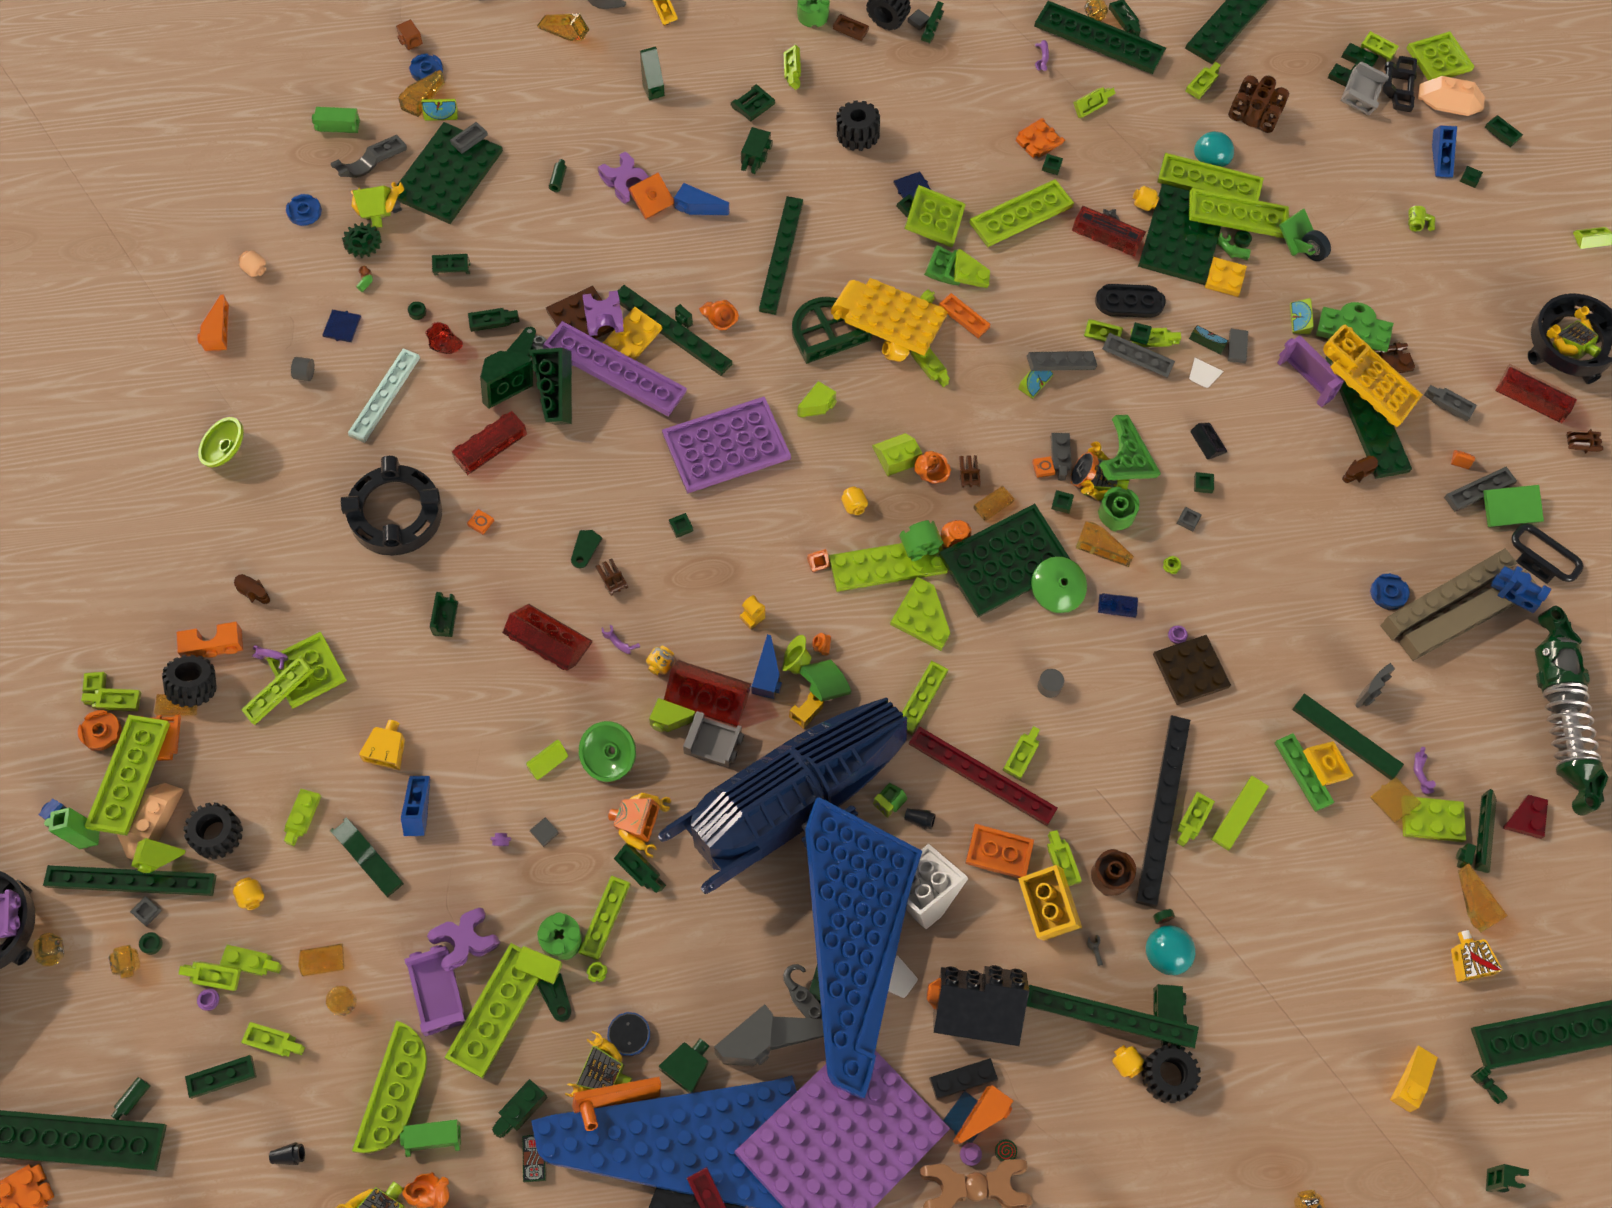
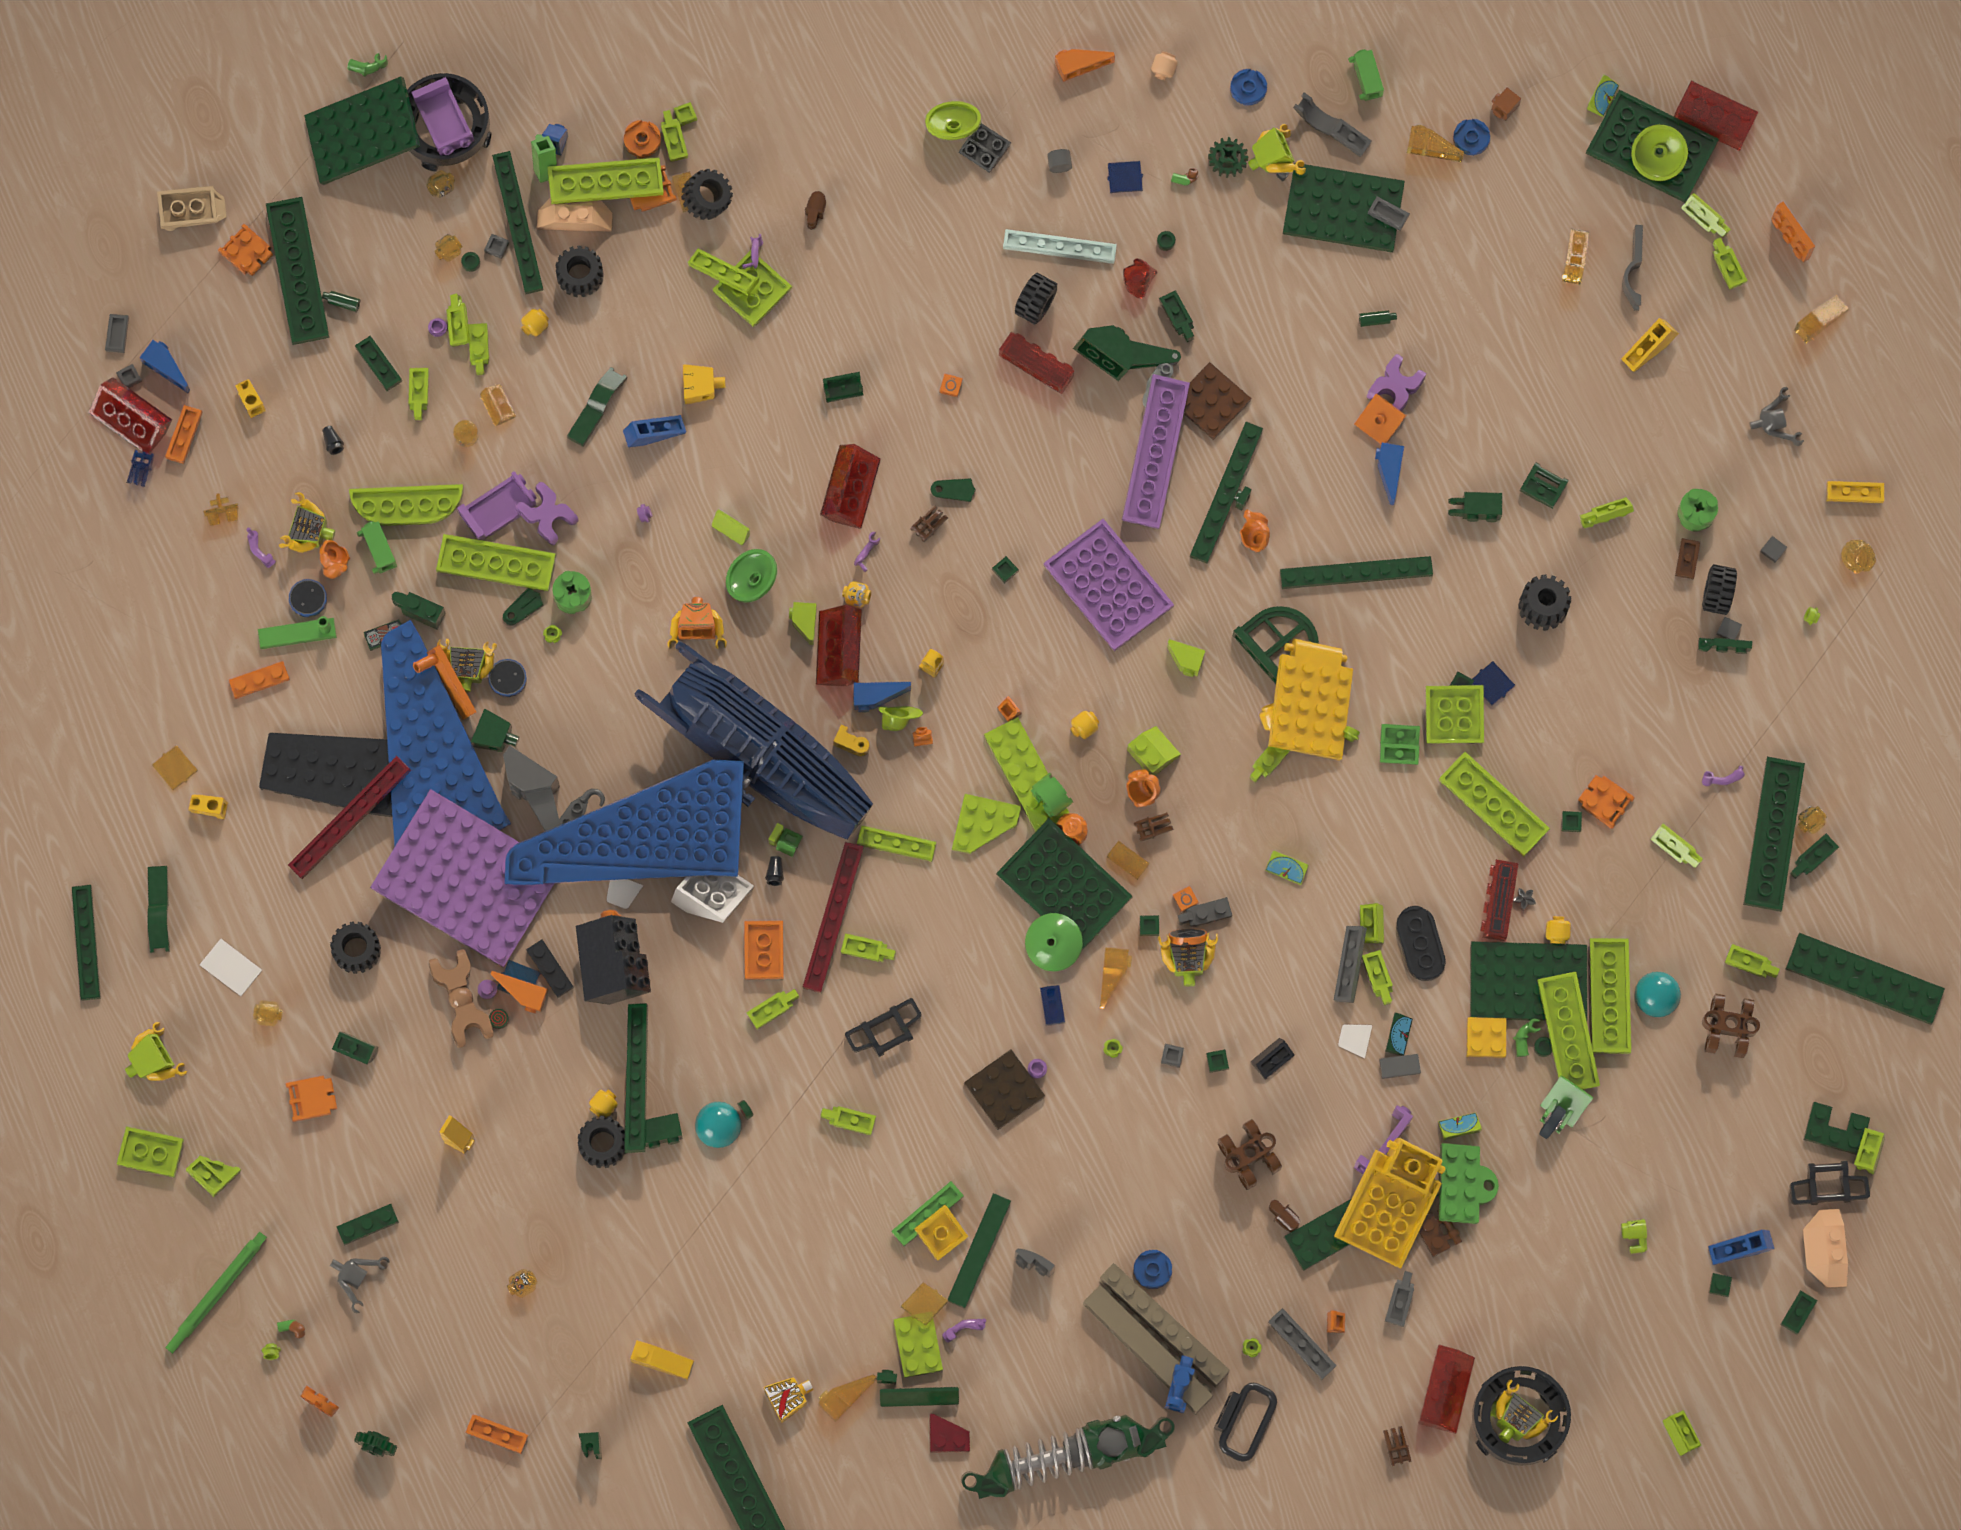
camera: 75 degrees right, 10 degrees up
(153, 855) = (540, 233): lime slope -> none
(227, 640) = (759, 209): orange arch -> none
(260, 428) = (985, 147): none -> dark grey slope
(301, 815) = (616, 338): lime hinge -> none
(393, 539) = (951, 331): black piece -> none
(428, 420) = (1036, 298): none -> black tyre
(439, 109) = (1418, 171): slope -> none
(450, 263) = (1226, 253): dark green hinge -> none
(538, 965) = (541, 582): lime slope -> none
(544, 831) = (664, 548): dark grey tile -> none
(554, 381) = (1113, 400): dark green wedge -> none
(603, 313) = (1212, 418): medium lavender piece -> none
(604, 918) = (602, 625): lime tile -> none
(637, 334) = (1203, 455): yellow plate -> none
(639, 868) = (653, 640): dark green hinge -> none
(651, 73) = (1531, 370): slope -> none
(713, 741) = (794, 666): light grey panel -> none
(826, 680) = (881, 748): bright green slope -> none
(965, 315) = (1340, 776): orange plate -> none
(970, 271) = (1398, 768): lime wing -> none
(1050, 683) = (946, 958): dark grey piece -> none
(1050, 902) = (724, 1002): yellow brick -> none
(1061, 360) = (1314, 887): dark grey plate -> none
(1093, 747) = (893, 1012): none -> black bar
(1094, 946) = (699, 1056): dark grey hand -> none
(1113, 861) = (774, 1043): reddish brown brick -> none
(1118, 508) = (1155, 969): bright green brick -> none
(1133, 457) = (1219, 983): bright green plate -> none
(1140, 333) = (1372, 958): dark green plate -> none
(1163, 812) = (851, 1091): black plate -> none
(1240, 813) = (869, 1162): lime tile -> none
(1307, 479) = (1233, 1153): none -> reddish brown piece
(1364, 88) = (1799, 1142): light grey panel -> none
(1440, 56) = (1885, 1225): lime plate -> none
(1480, 527) = (1251, 1342): none -> lime plate
(1494, 1091) = (680, 1419): dark green piece -> none
(1513, 505) = (1290, 1378): bright green tile -> none

